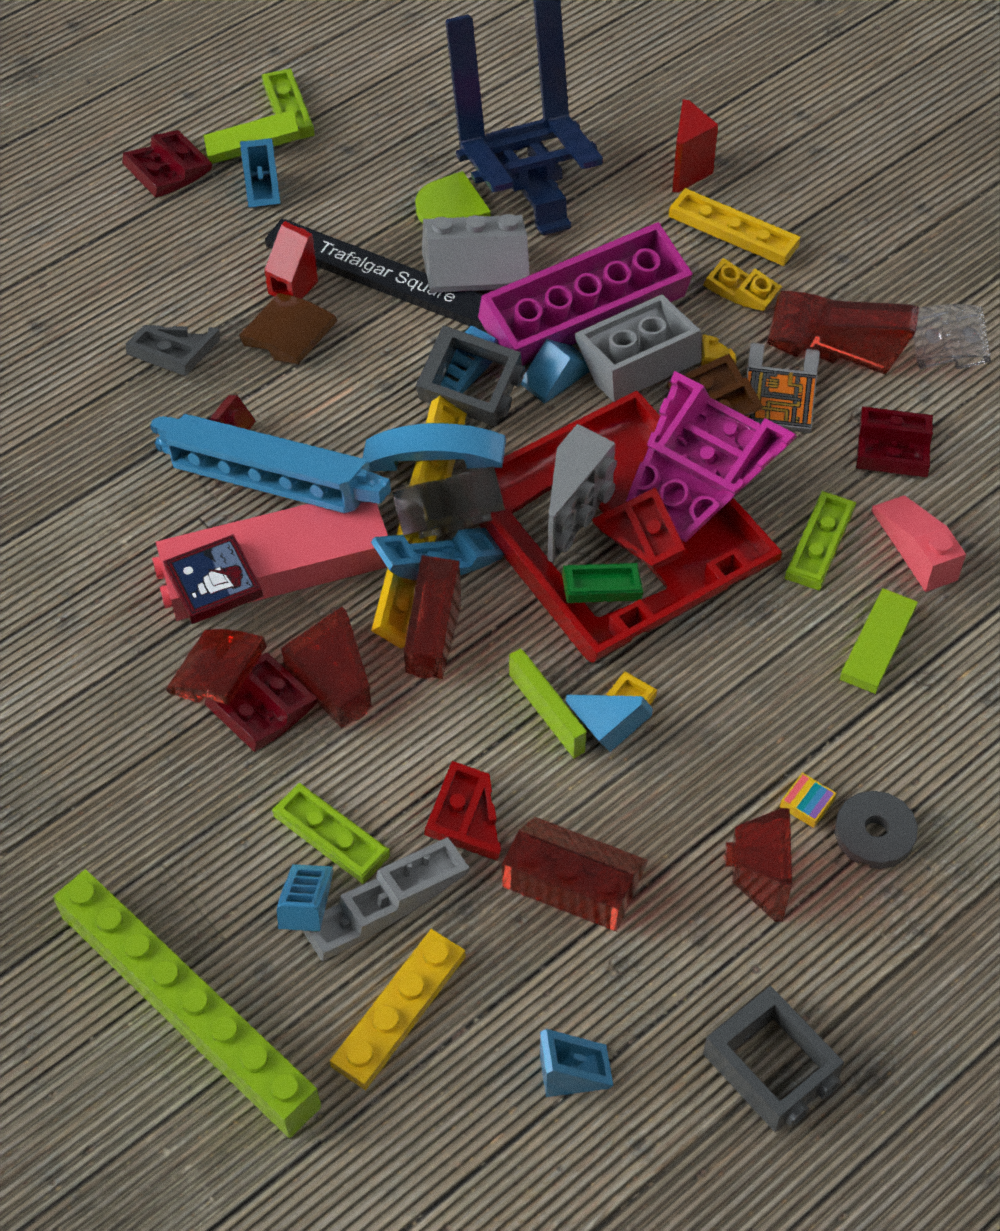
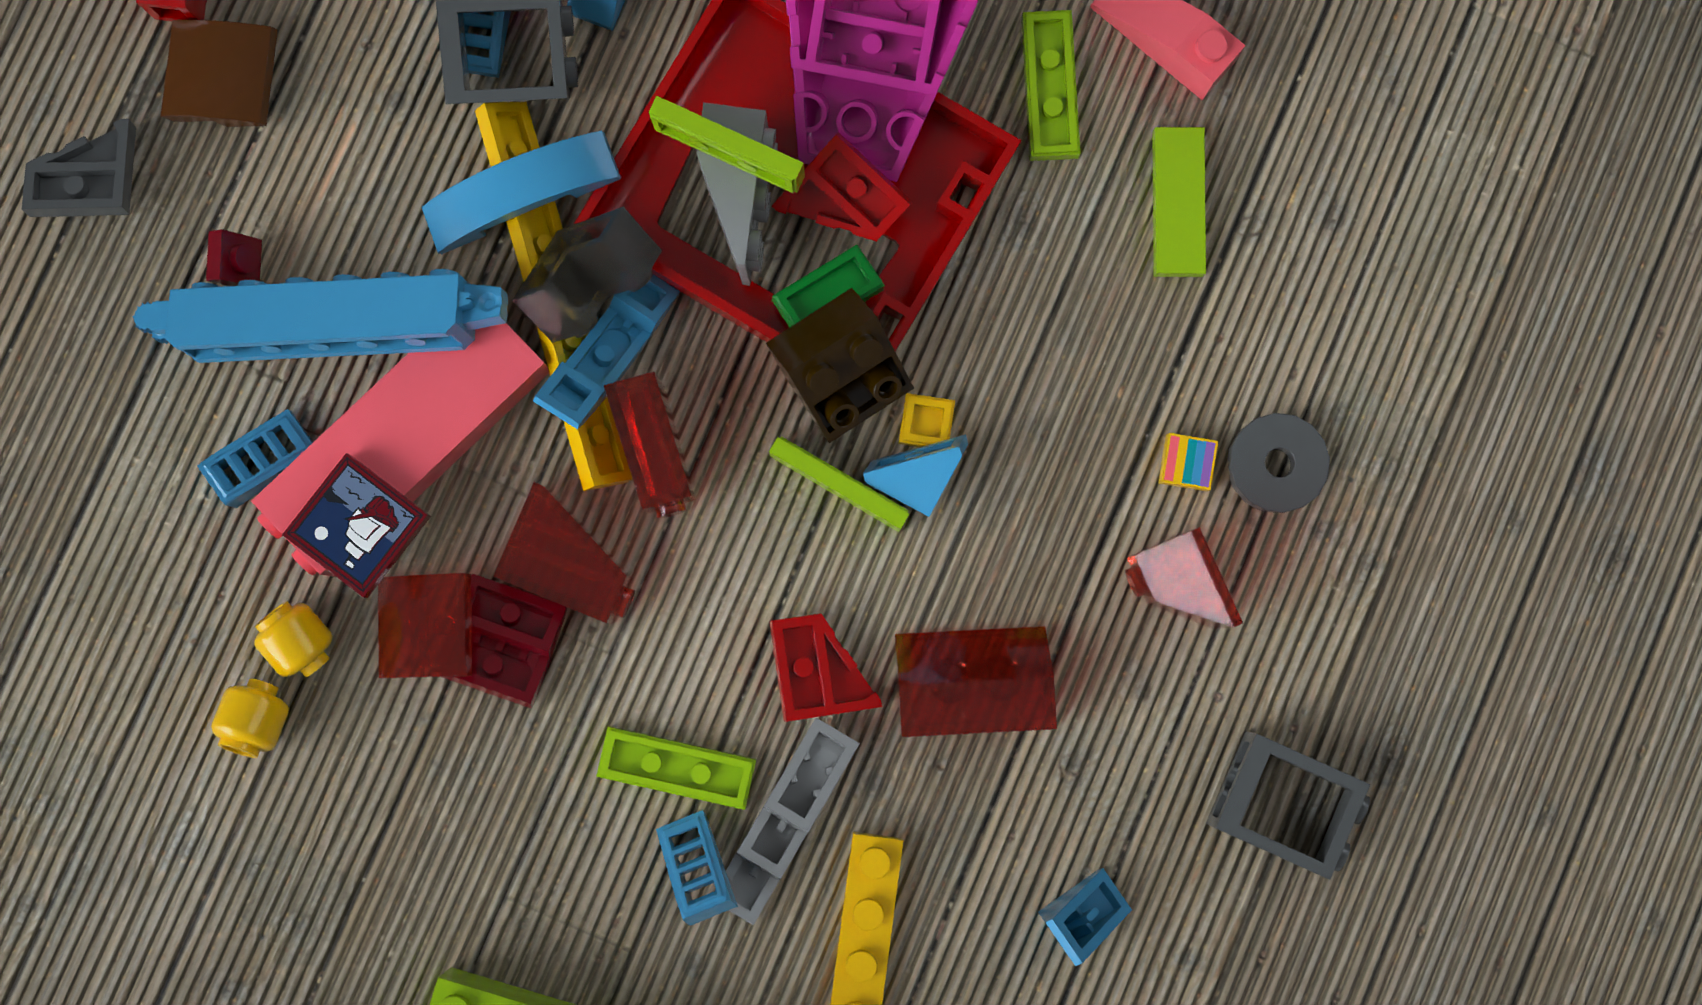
camera: 30 degrees left, 30 degrees up
(68, 669) = (250, 718): none -> yellow head
(127, 636) = (293, 639): none -> yellow head
(166, 521) = (231, 456): none -> dark azure slope
(579, 443) = (727, 145): none -> lime tile
(587, 620) = (840, 364): none -> dark brown slope

